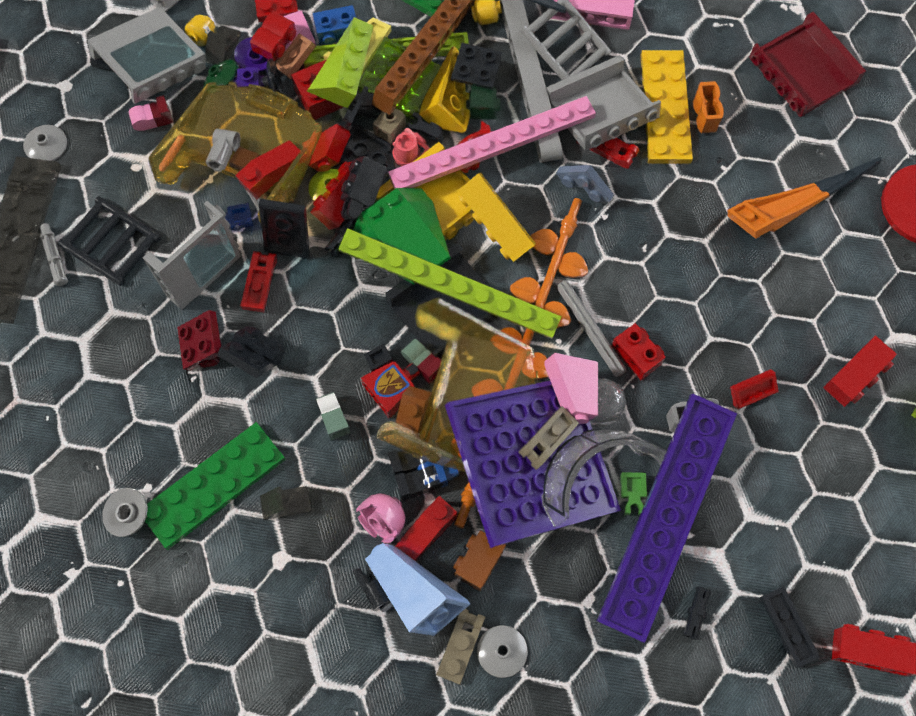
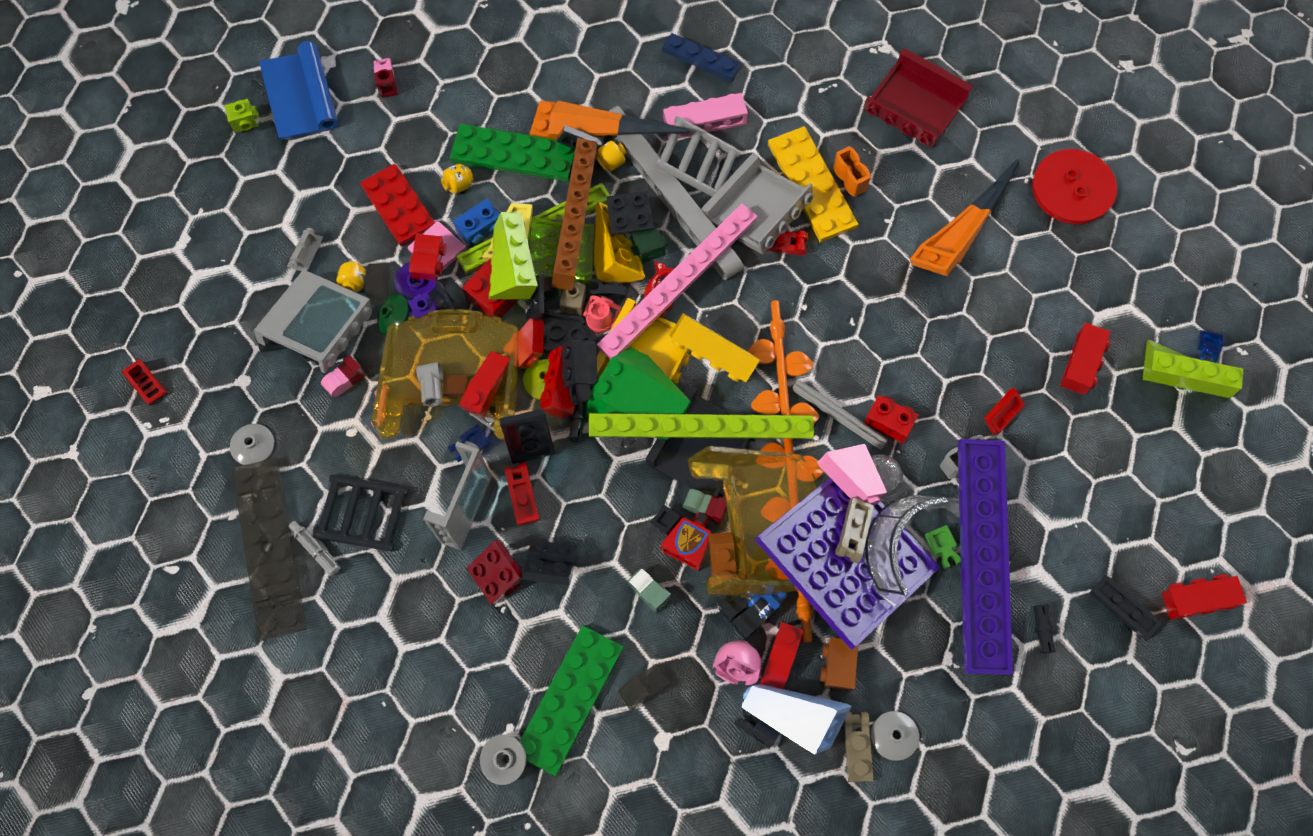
camera: 20 degrees left, 0 degrees up
(295, 55) = (454, 267): nougat plate -> none
(585, 177) = (777, 280): sand blue plate -> none

